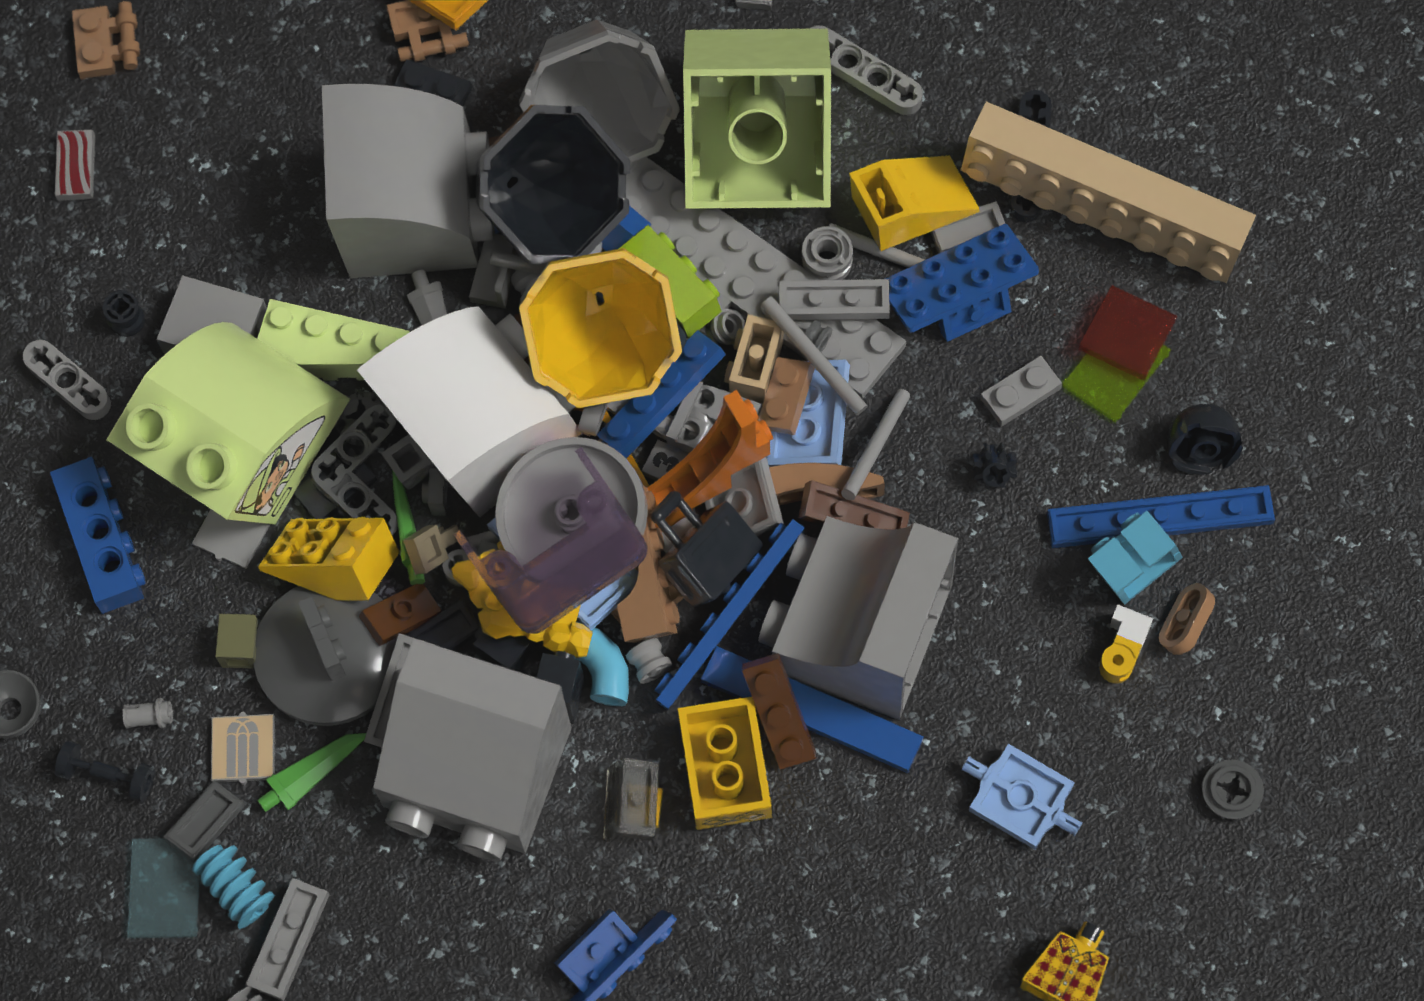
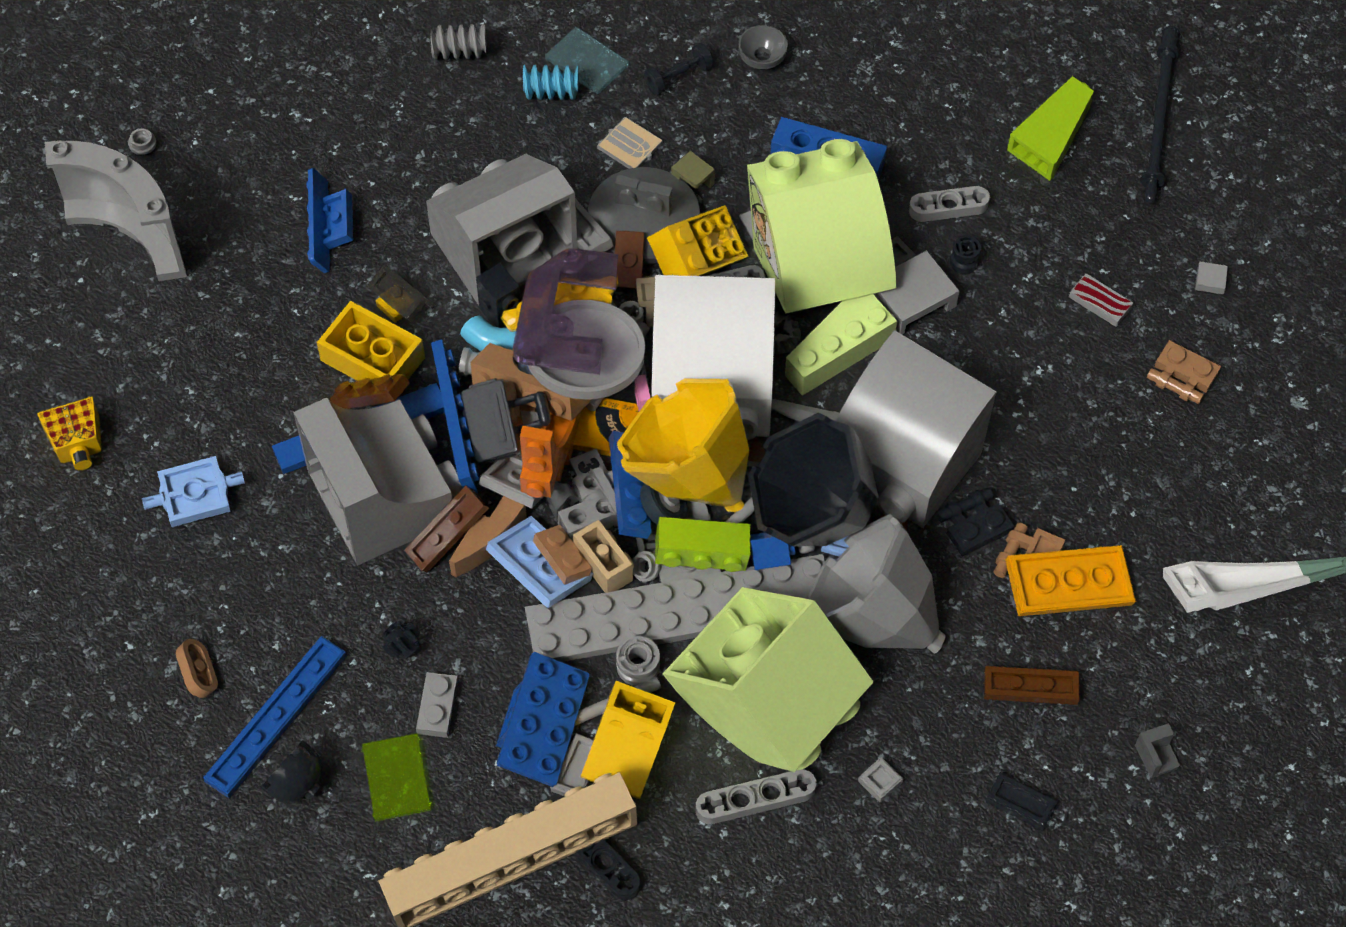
camera: 125 degrees right, 10 degrees down
(148, 714) = (688, 114): light grey pin -> none
(204, 821) = (603, 96): dark grey tile -> none
(287, 939) = (496, 89): light grey plate -> none
(299, 778) = (583, 160): bright green bar -> none
(814, 356) = (559, 578): light grey bar -> none
(818, 335) = (581, 597): dark grey bush -> none
(835, 299) = (597, 629): light grey plate -> none
(875, 444) = (480, 578): light grey bar -> none
(1121, 657) = (215, 616): leg -> none
(1128, 332) = (409, 797): clear red tile -> none
(1134, 556) = (257, 656): medium azure piece -> none
(1248, 783) = (63, 605): dark grey gear -> none

